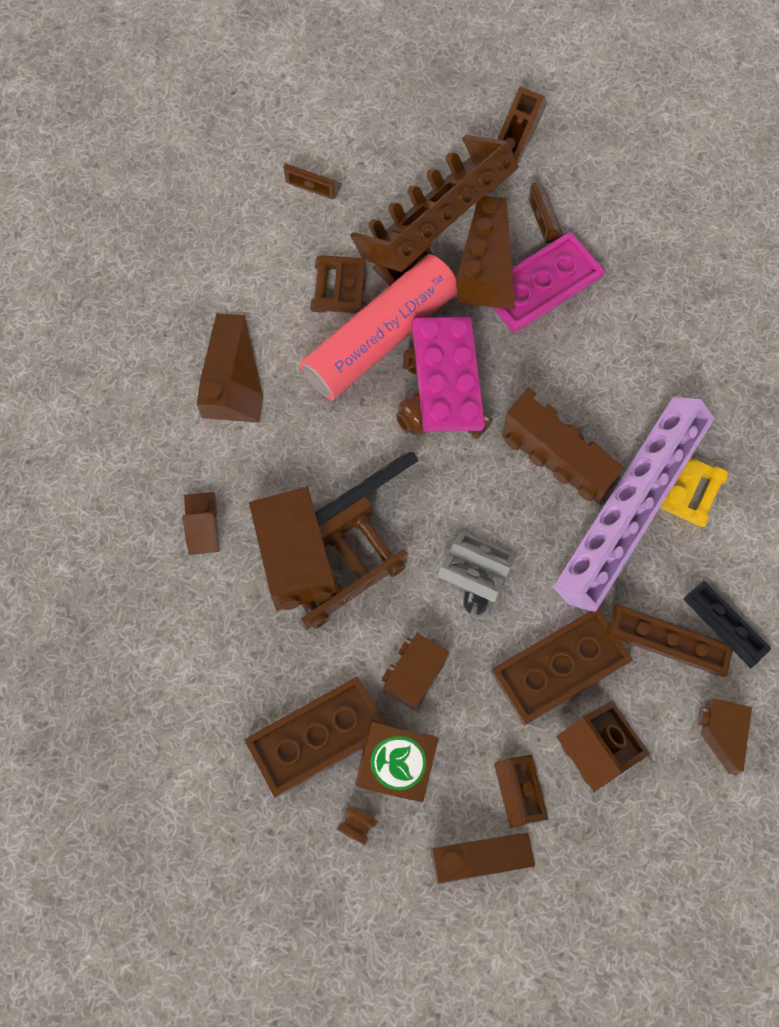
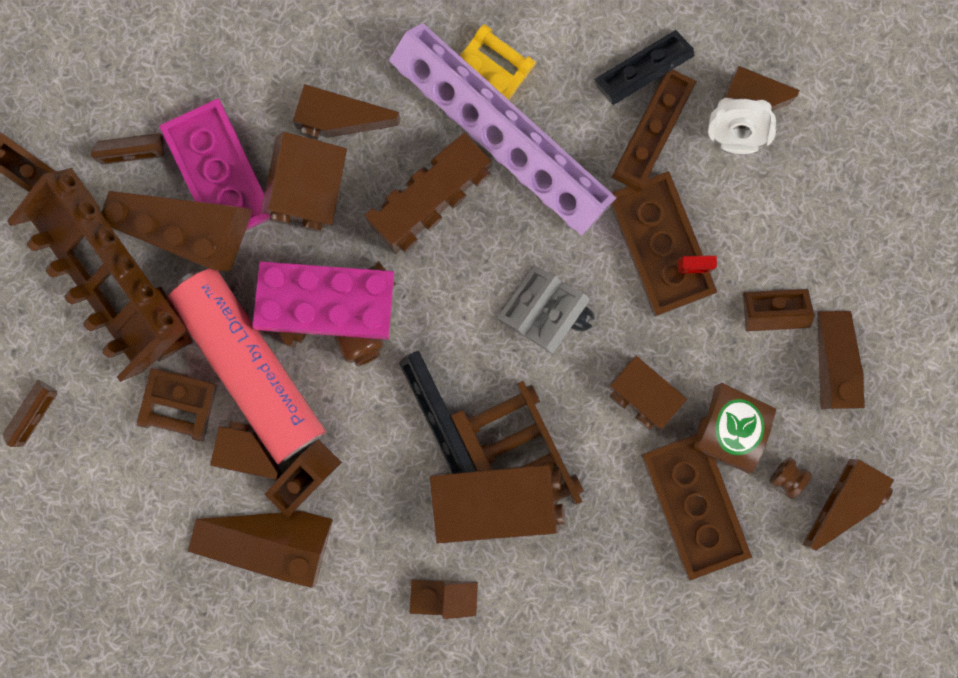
camera: 85 degrees left, 15 degrees up
(292, 388) = (302, 478): none -> reddish brown slope
(306, 333) = (243, 452): none -> reddish brown slope
(346, 893) = (853, 498): none -> reddish brown slope
(547, 694) = (697, 264): none -> red tile
(548, 345) = (303, 181): none -> reddish brown brick
(602, 745) = (749, 219): reddish brown slope -> none
(613, 364) = (338, 115): none -> reddish brown slope
(706, 727) = (753, 114): none -> white plate

